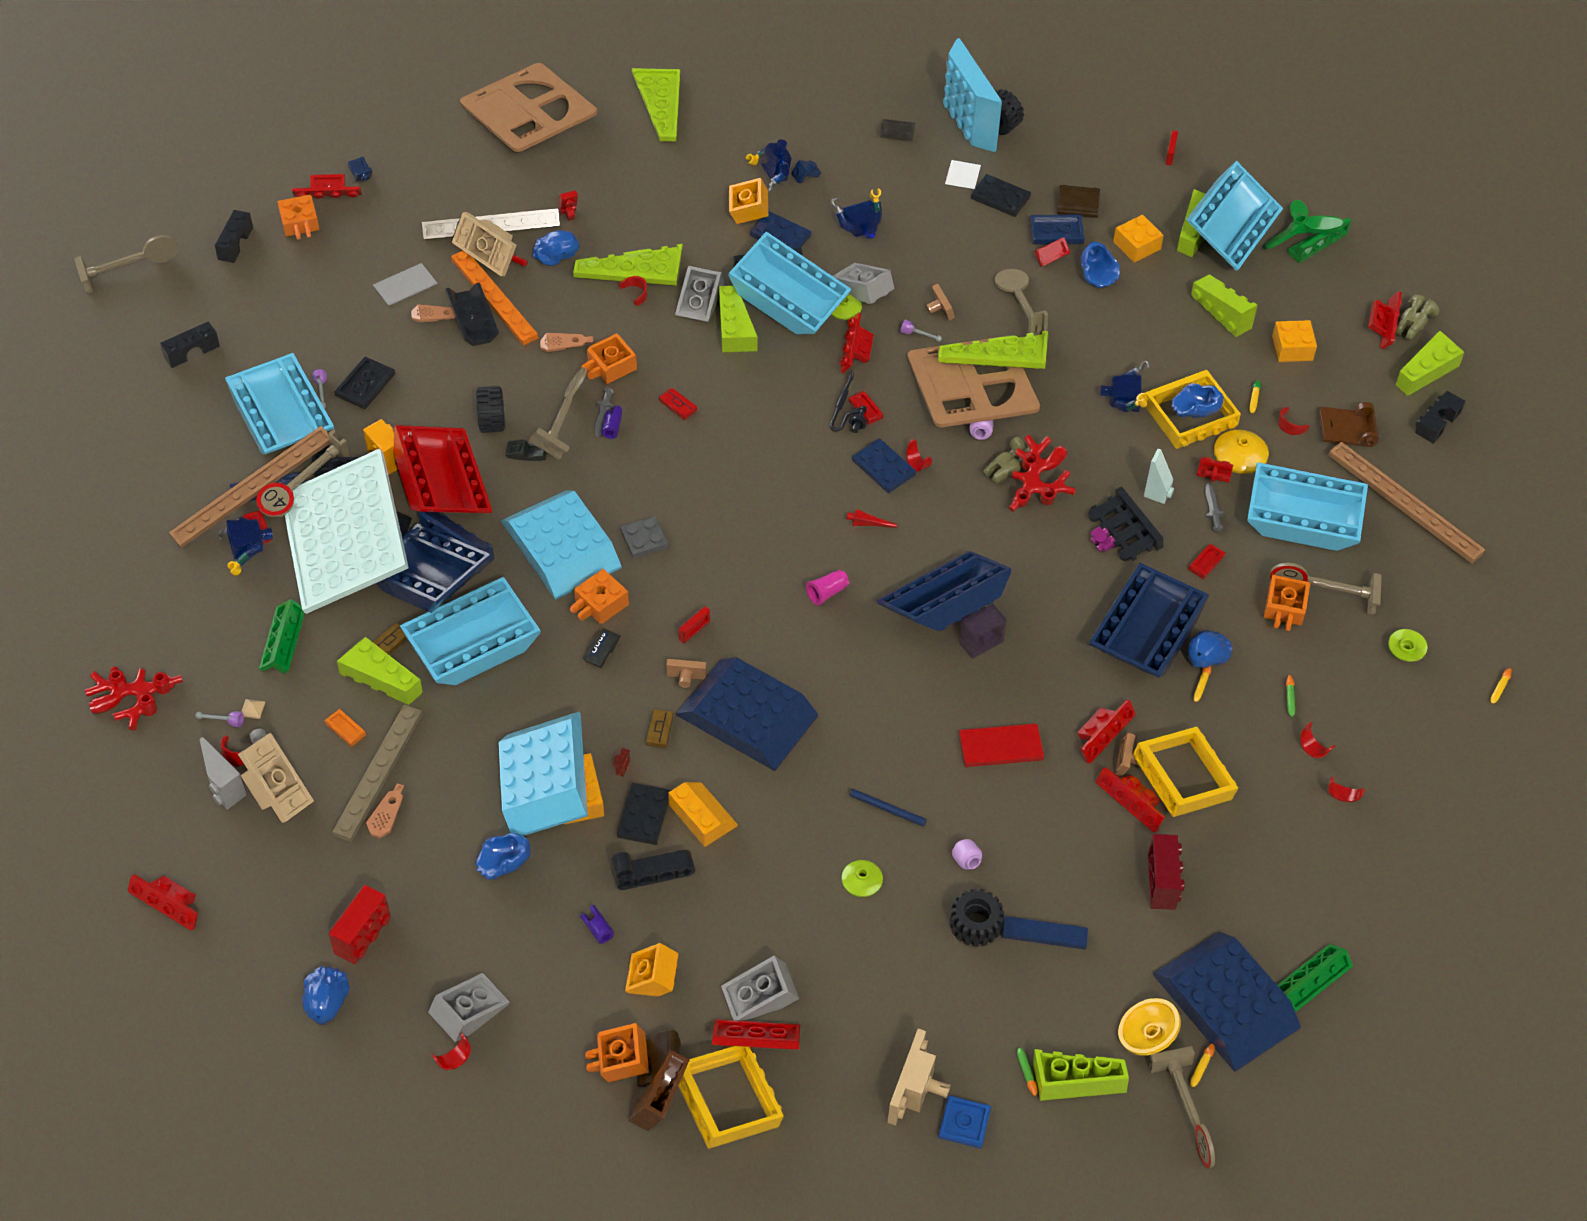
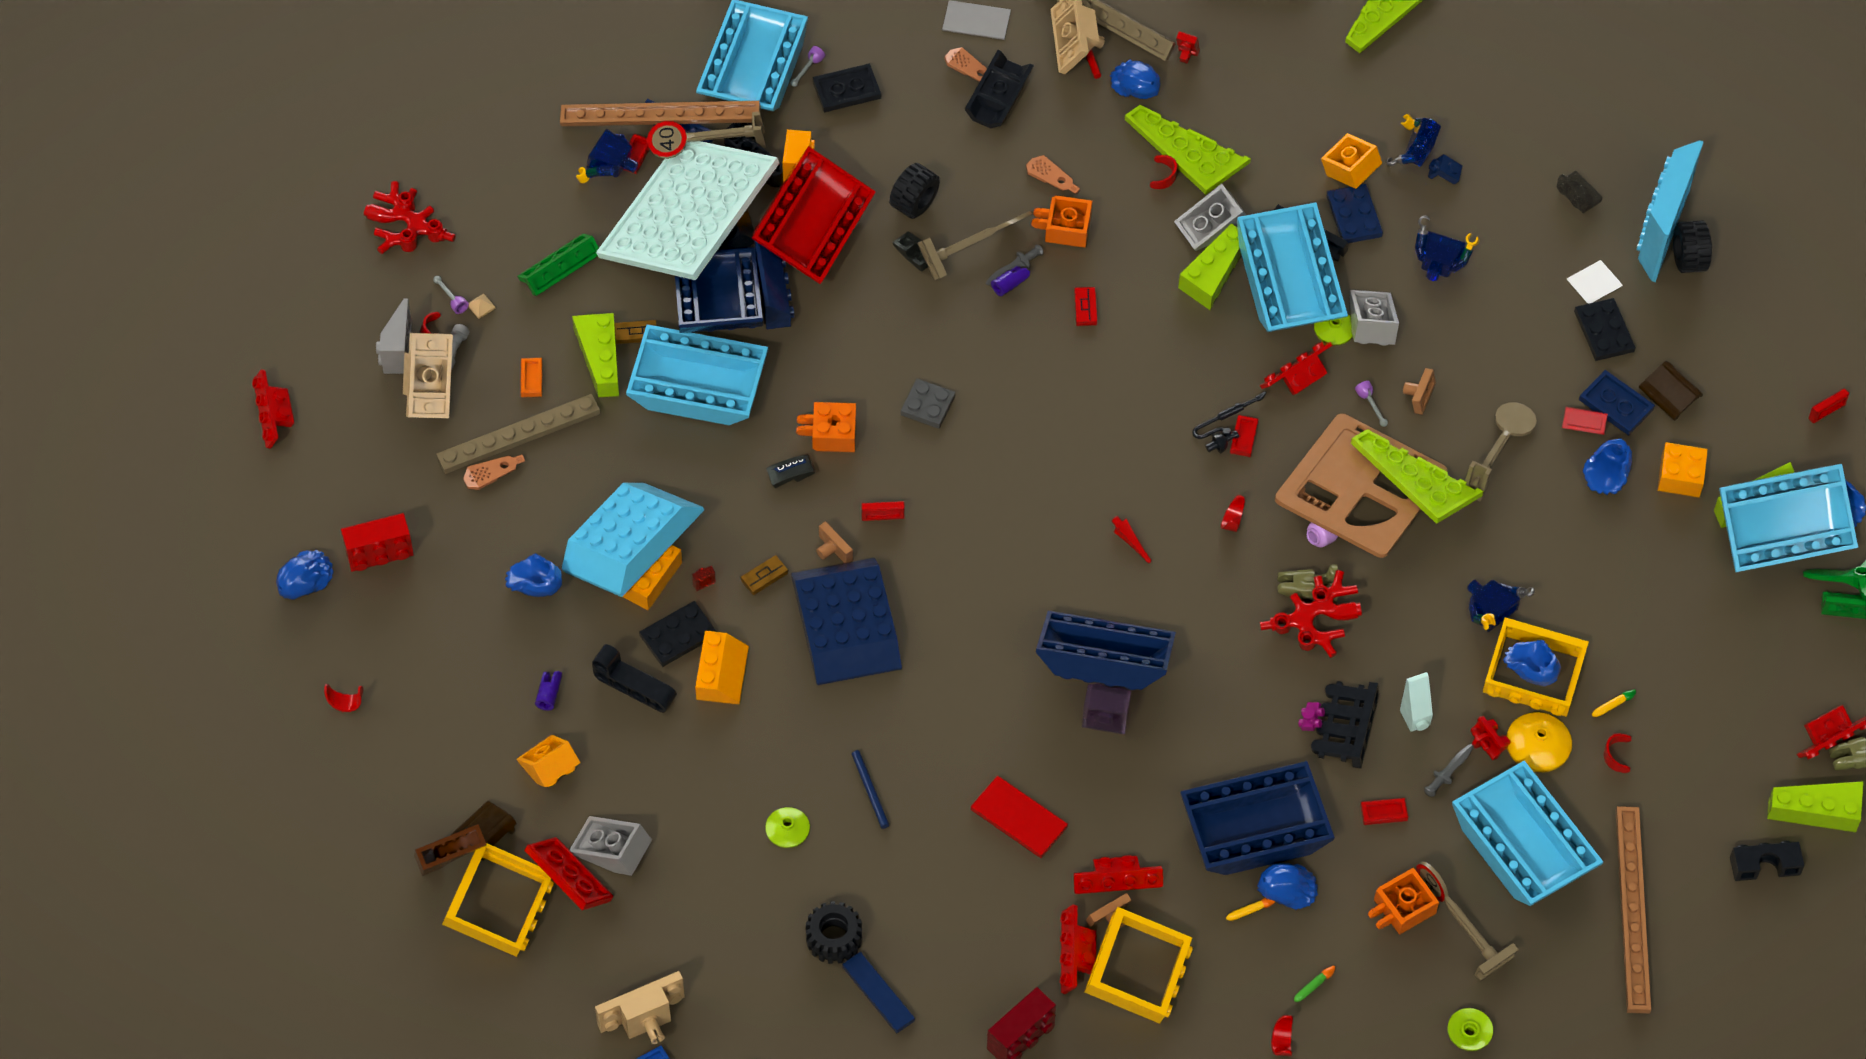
camera: 45 degrees right, 5 degrees up
(467, 1006) = (392, 671): light grey slope -> none
(495, 297) = (1036, 90): orange plate -> none
(562, 542) = (854, 354): medium azure slope -> none
(620, 1053) = (457, 800): orange hinge -> none
(826, 587) = (1026, 566): dark pink plant -> none
(884, 465) = (1199, 500): dark blue plate -> none
(967, 854) = (885, 878): lavender head -> none
(1226, 306) = (1686, 595): lime wedge -> none
(1294, 341) = (1712, 681): light orange brick -> none
(1350, 426) = (1669, 800): reddish brown door -> none

